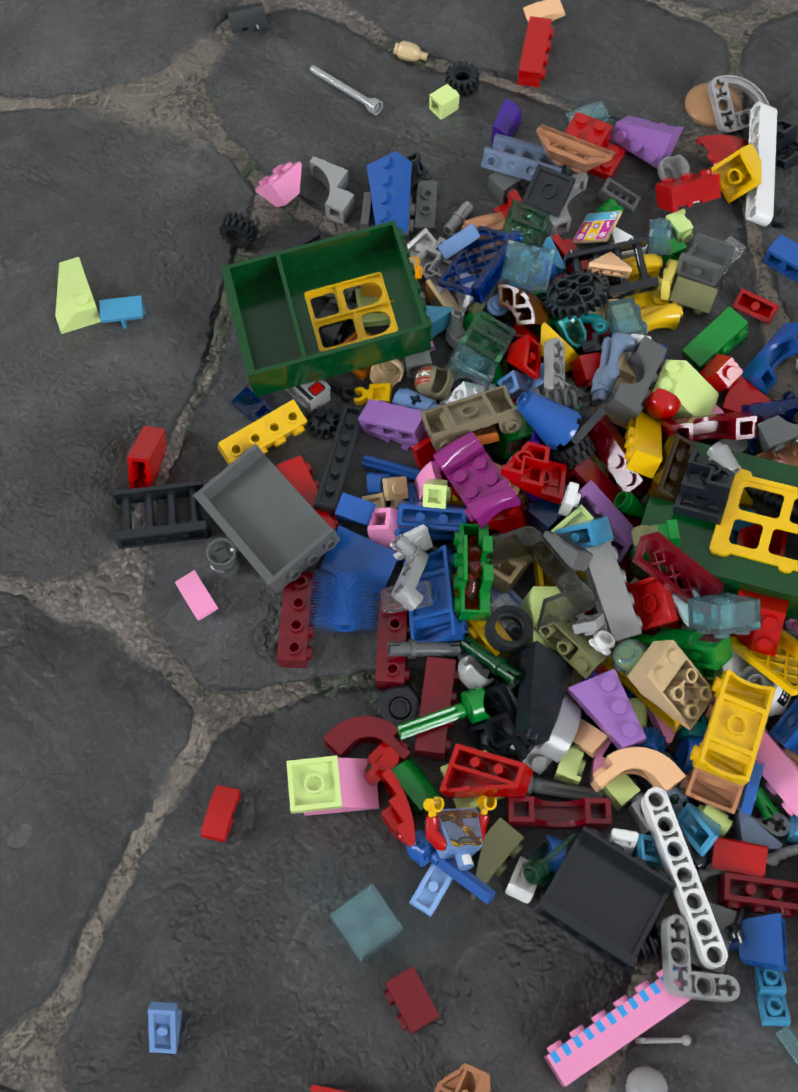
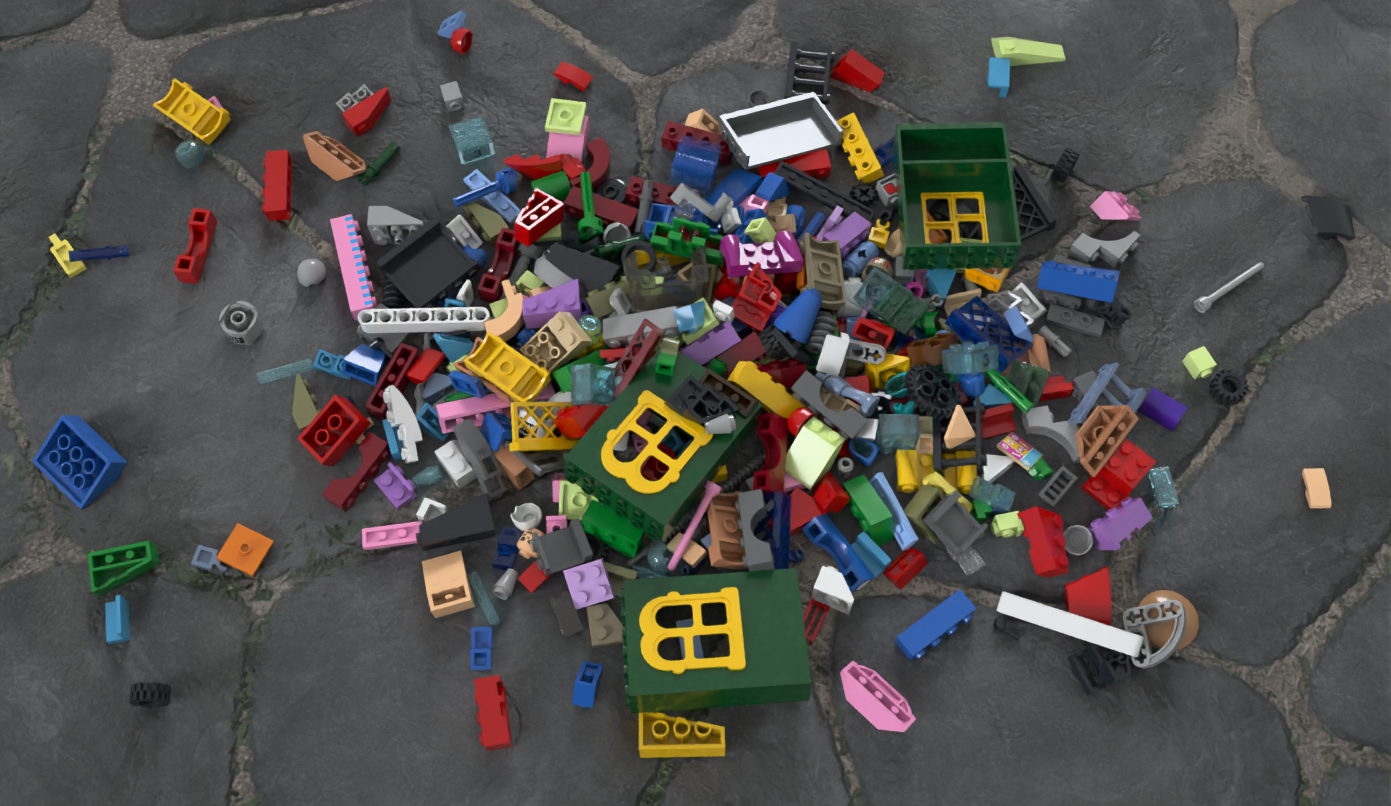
camera: 105 degrees right, 0 degrees up
(192, 1000) = (461, 40): none -> red hair
(196, 595) = (732, 87): bright pink slope -> none
(268, 618) = (702, 120): none -> light nougat slope
(296, 980) = (452, 96): none -> light grey brick
(383, 447) = (831, 222): none -> lavender plate
(409, 52) = (1272, 350): tan plant -> none
(411, 1000) = (415, 155): dark red brick -> none
(430, 1051) = (374, 168): none -> dark green pin
(444, 344) = (917, 288): none -> dark pink cone
(457, 831) = (505, 192): torso -> none
(534, 52) = (1259, 462): red brick -> none
(537, 869) = (464, 237): clear green plant -> none
(546, 230) = (1001, 382): none -> green pin
(548, 190) = (1059, 407): black plate -> none
(548, 988) = (390, 225): none -> light grey slope
(568, 378) = (833, 354): none -> white panel
(572, 553) = (666, 294): dark grey slope -> none
(602, 642) = (608, 309): white plate -> none
(685, 1040) = (330, 305): light grey hinge -> none
(686, 976) = (361, 304): light grey beam -> none
(697, 325) = (901, 526): none -> light blue tile
(739, 172) = (1059, 594): yellow slope -> none
(758, 335) = (871, 554): none -> dark azure panel

